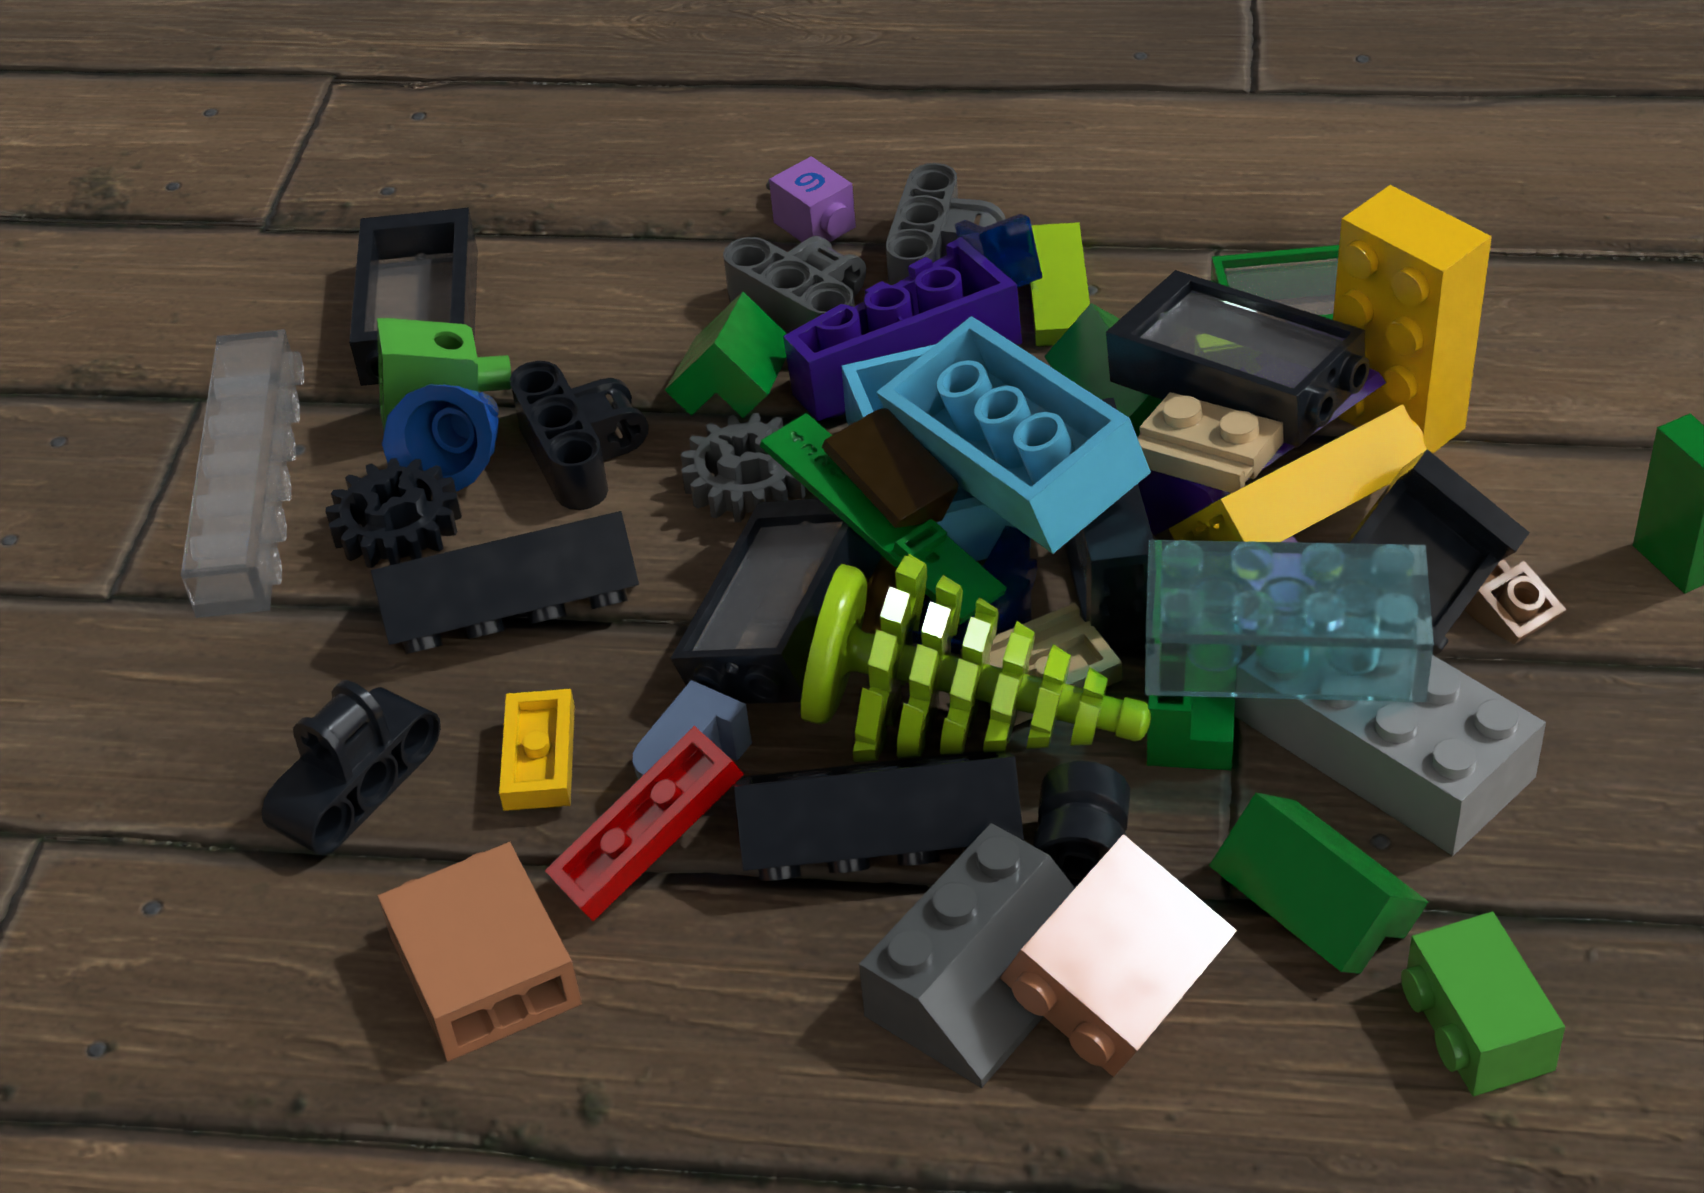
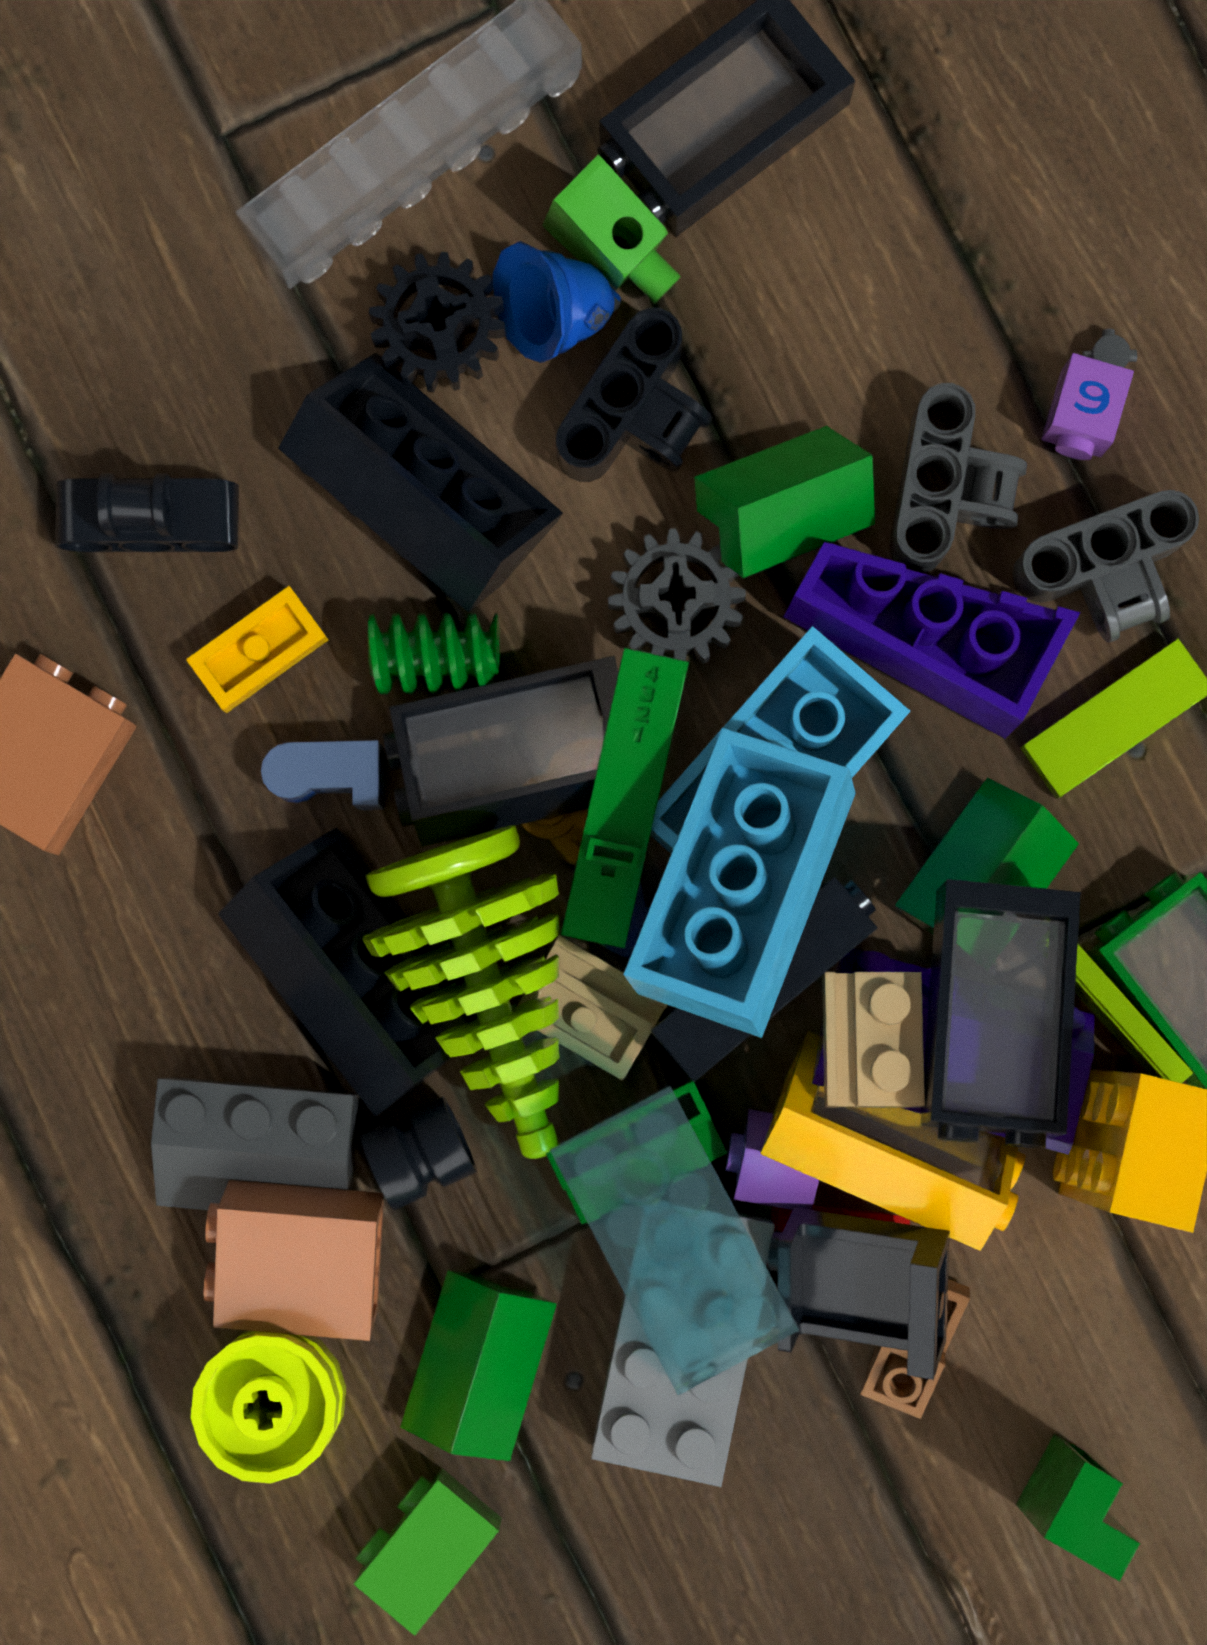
camera: 55 degrees right, 40 degrees up
(644, 823) = (215, 805): red plate -> none
(646, 624) = (433, 653): none -> green piece
(893, 469) = (658, 784): dark brown slope -> none
(1006, 245) = (1087, 663): clear blue panel -> none
(1246, 1052) = (241, 1431): none -> neon yellow wheel

